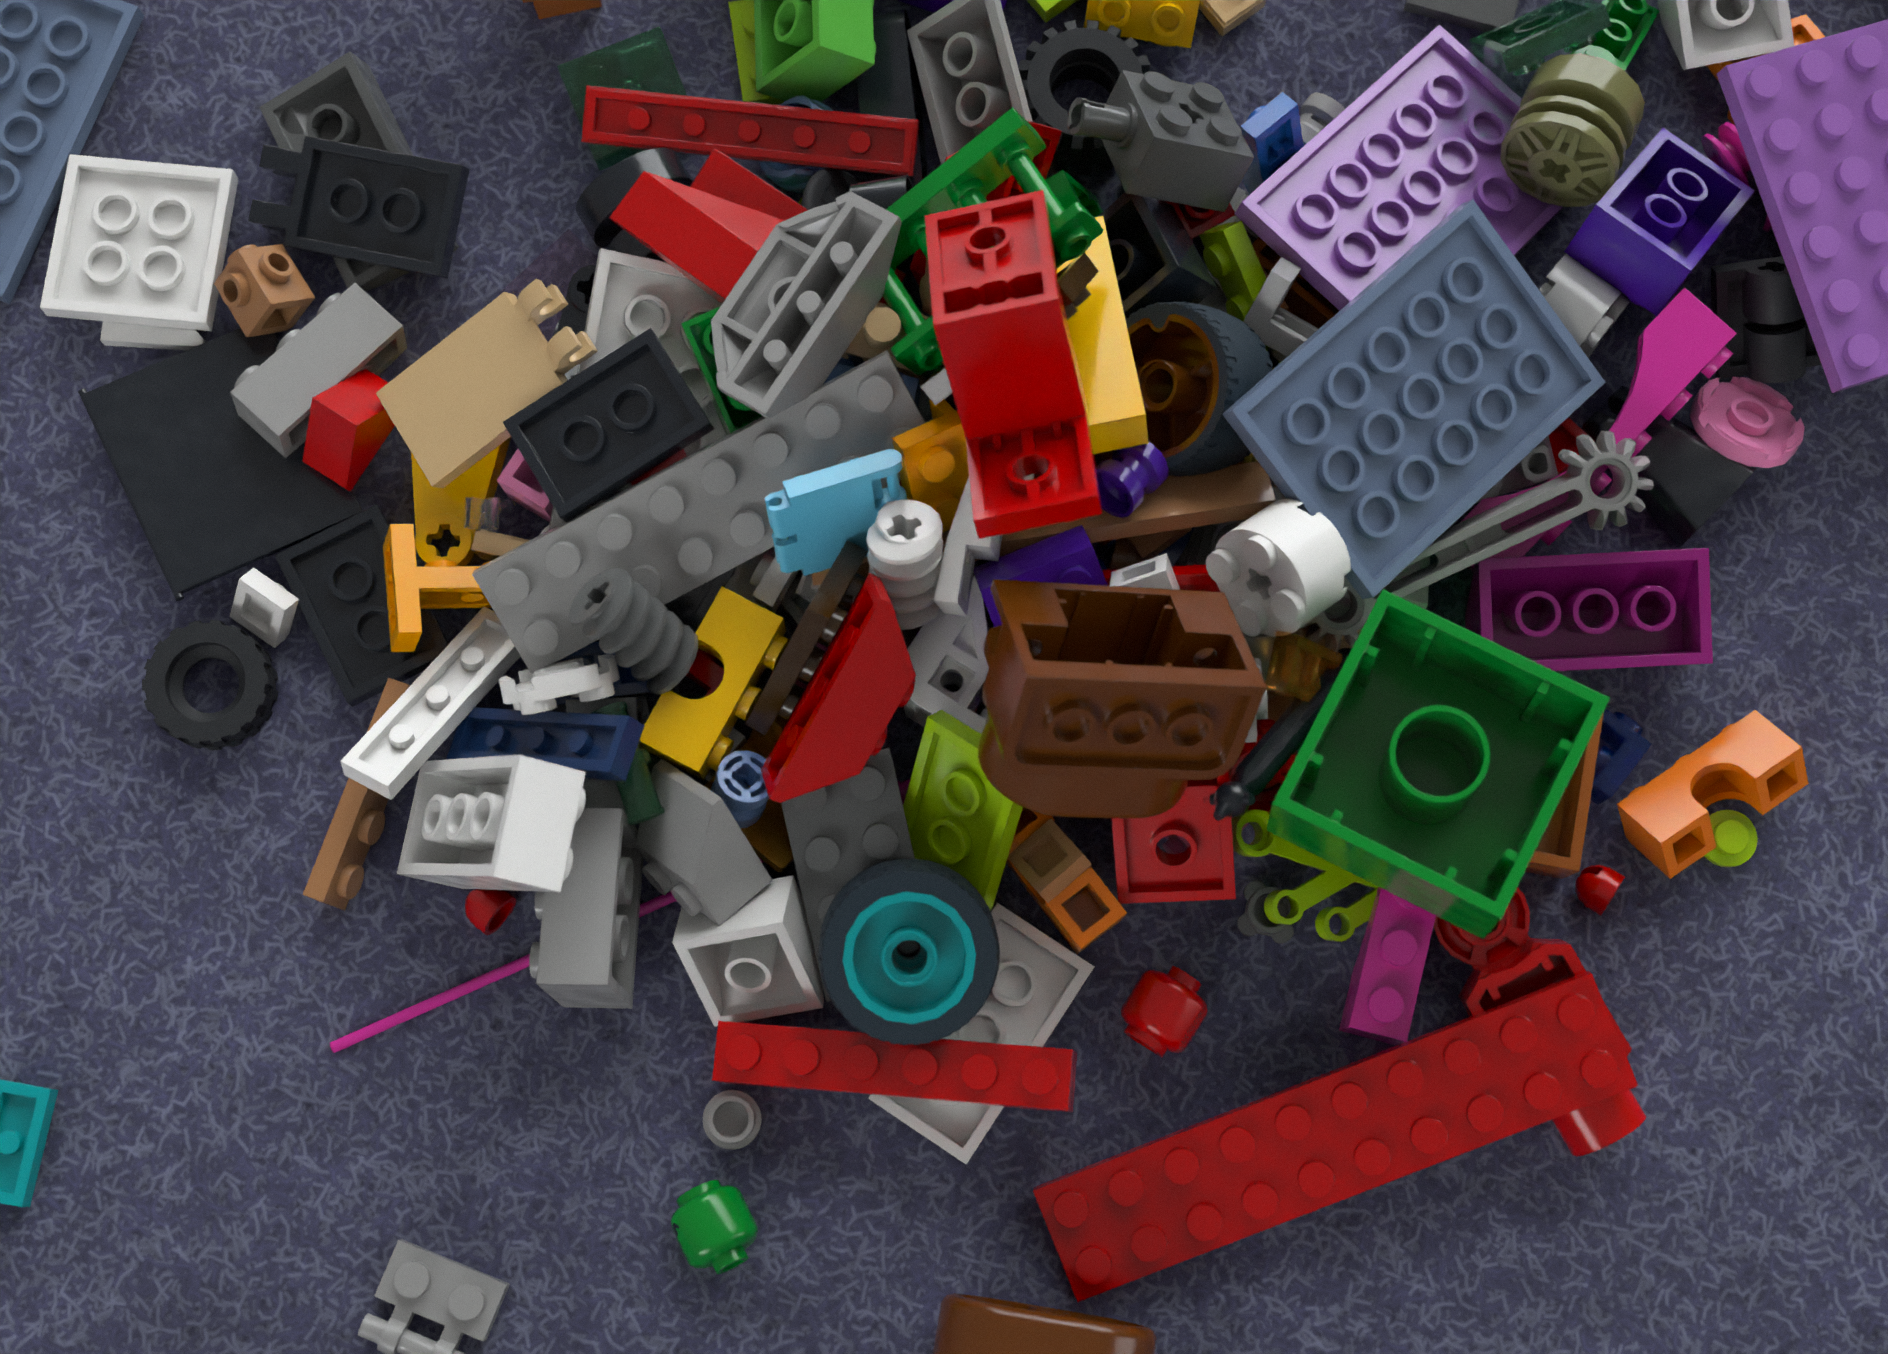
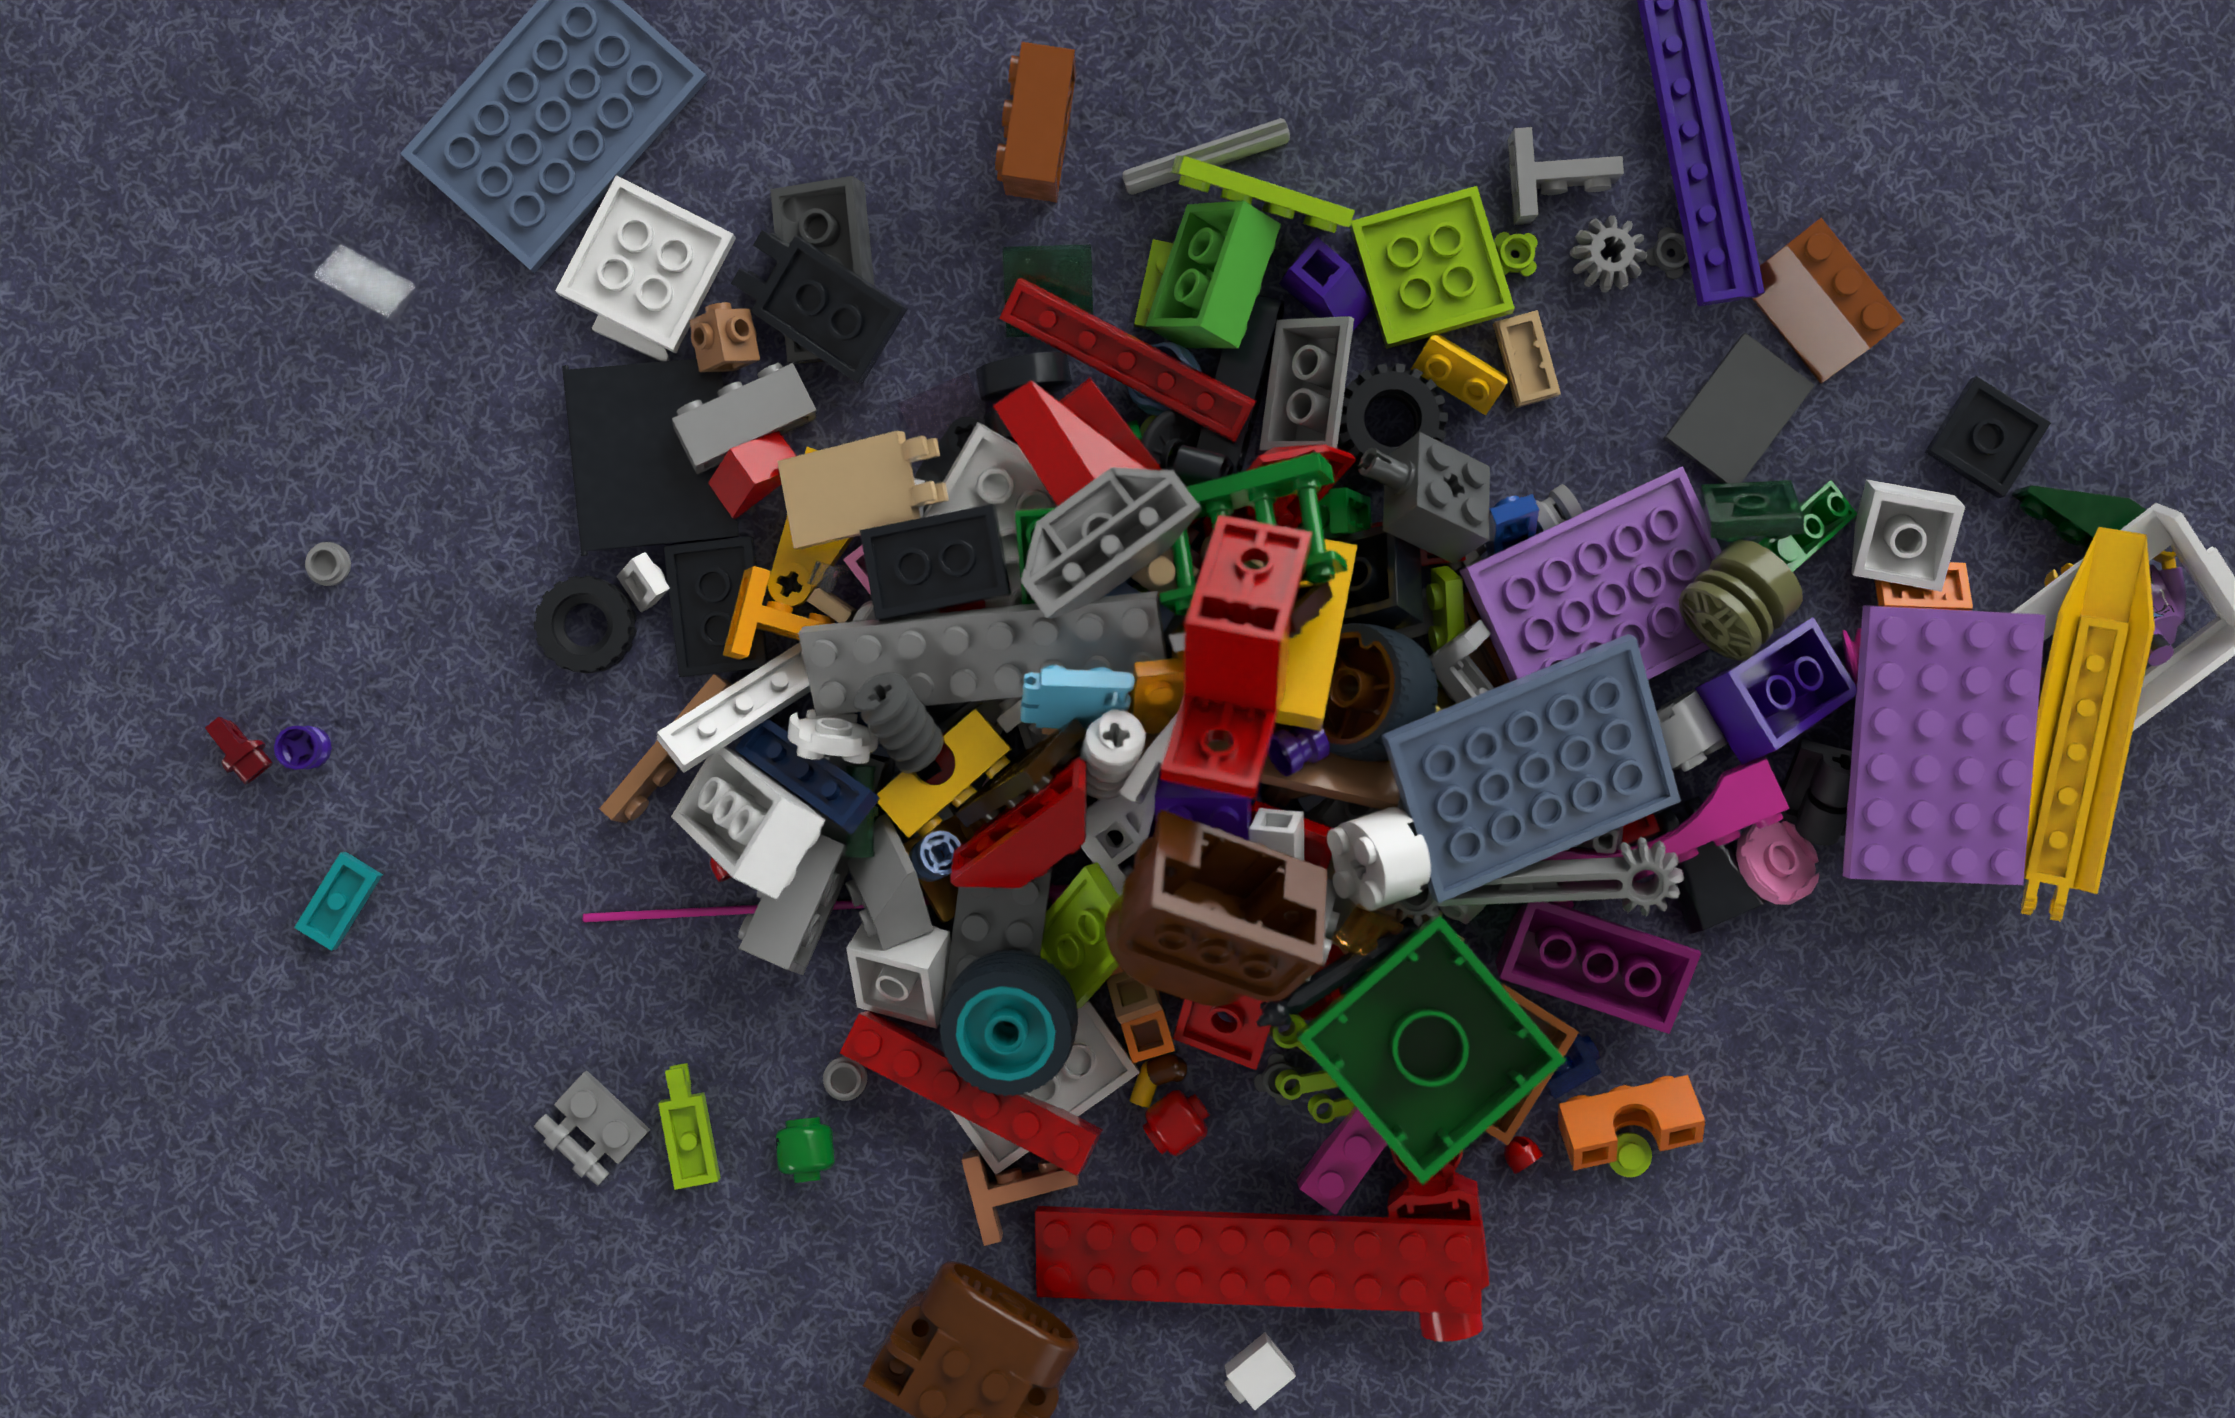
camera: 20 degrees right, 10 degrees up
(558, 1265) = (687, 1132): none -> lime plate
(990, 1171) = (1009, 1187): none -> nougat bracket
(1113, 963) = (1155, 1073): none -> arm
(1392, 1286) = (1258, 1372): none -> white brick

